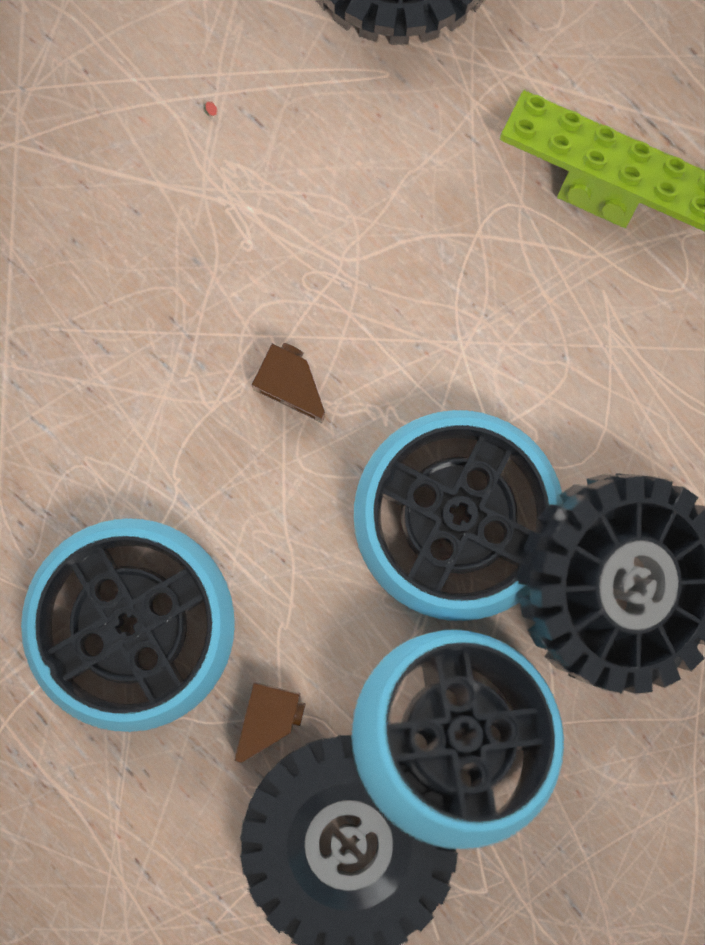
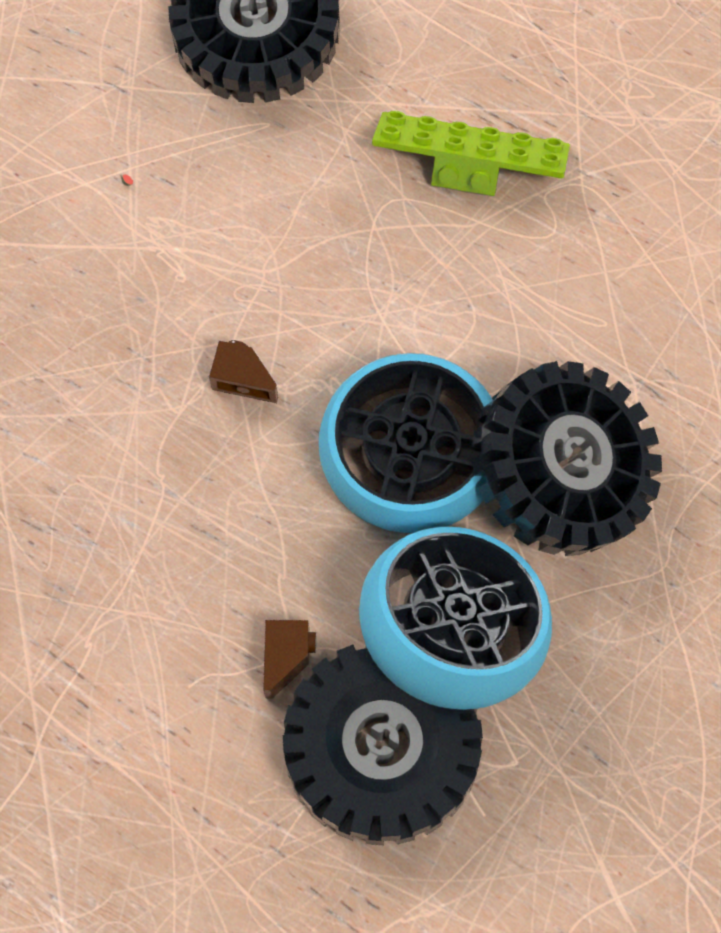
camera: 10 degrees left, 15 degrees down
(118, 662) = (95, 640): black wheel -> none

